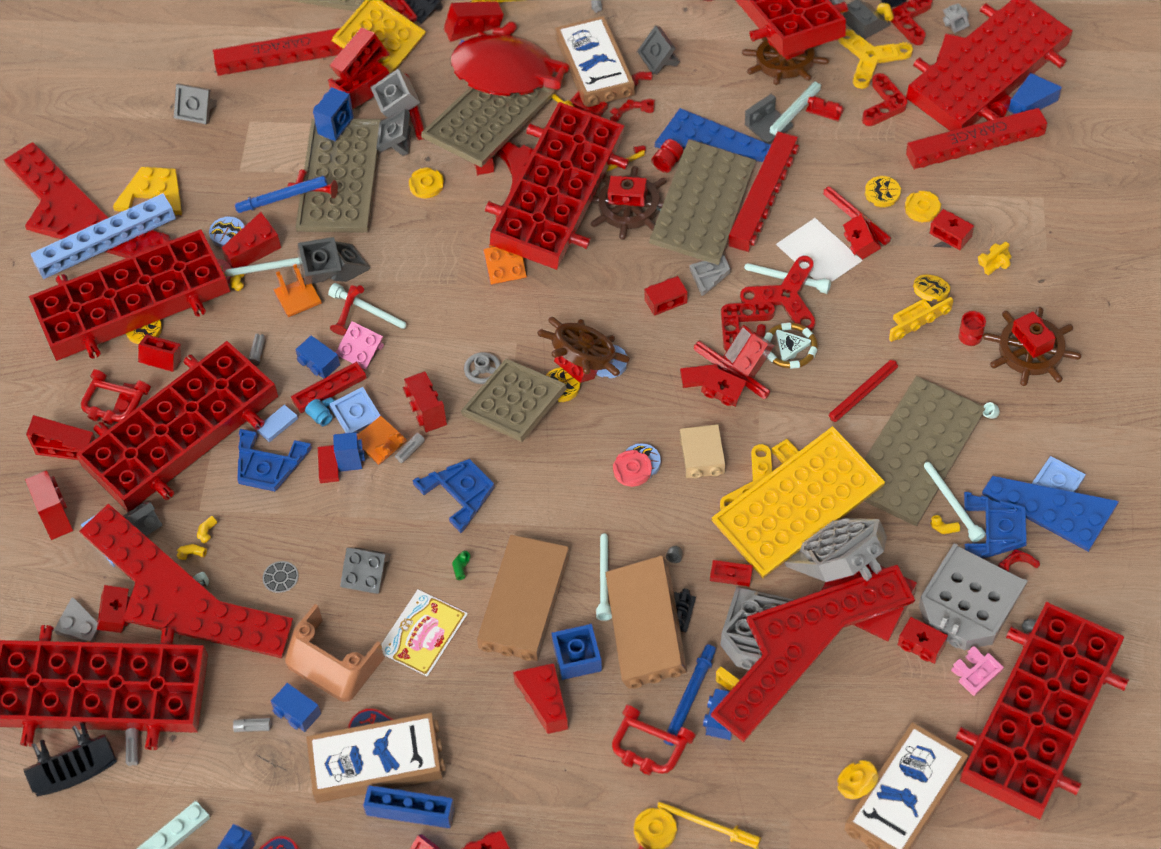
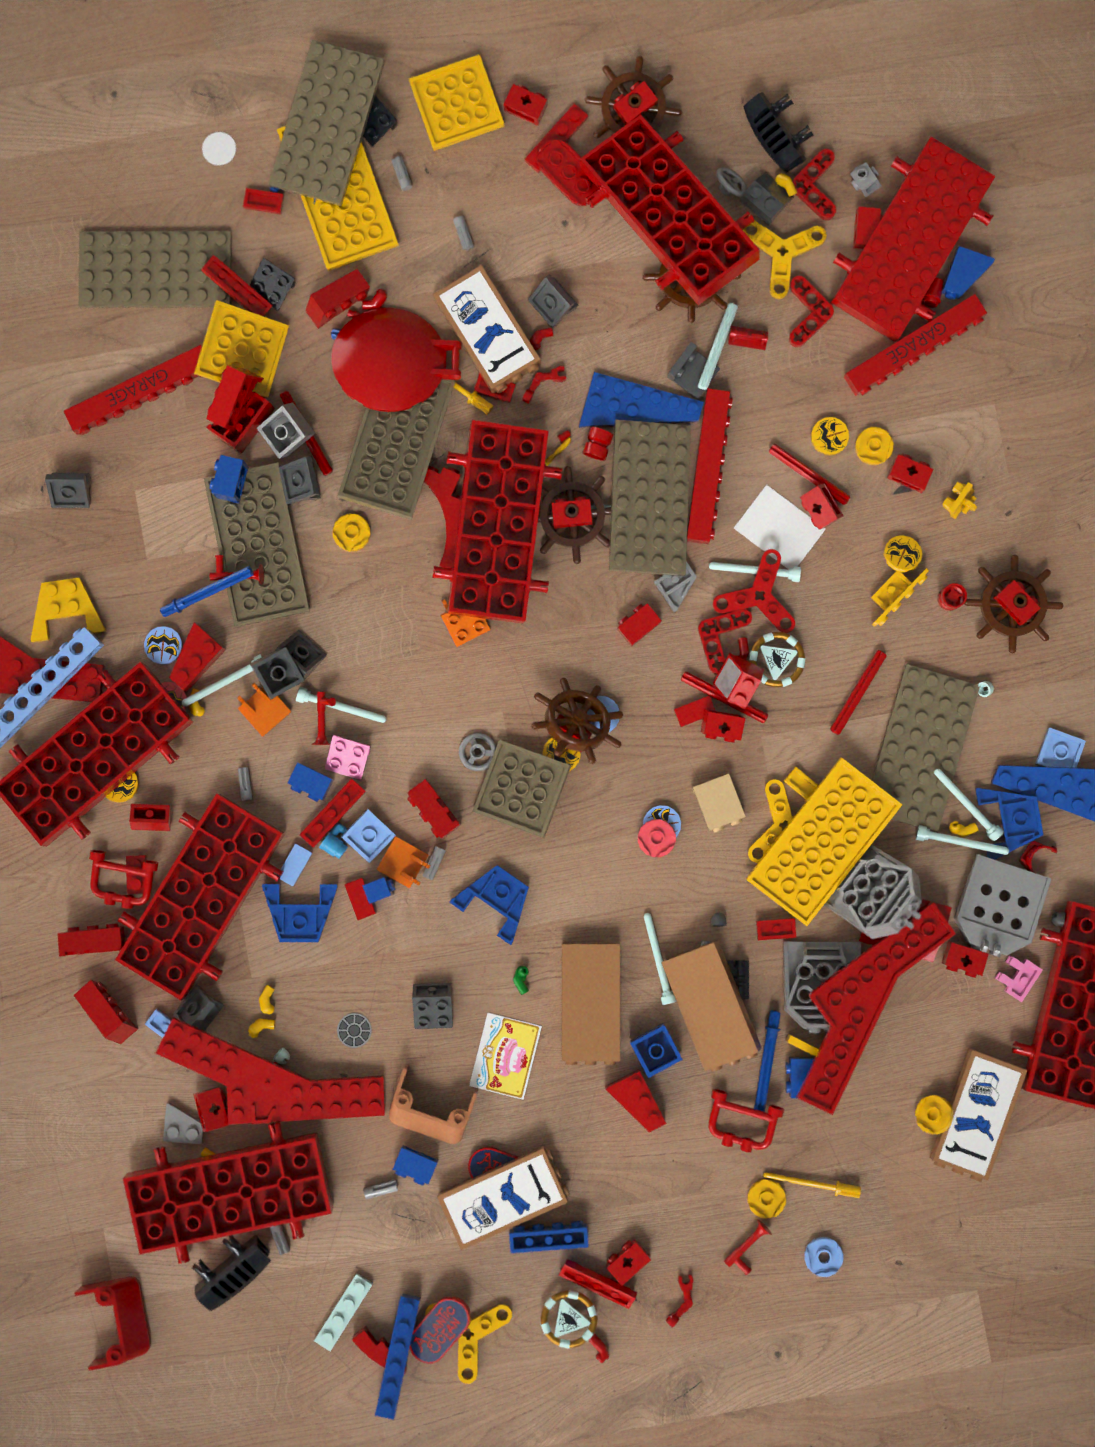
camera: 15 degrees left, 30 degrees up
(902, 520) = (925, 834): none -> light aqua piece

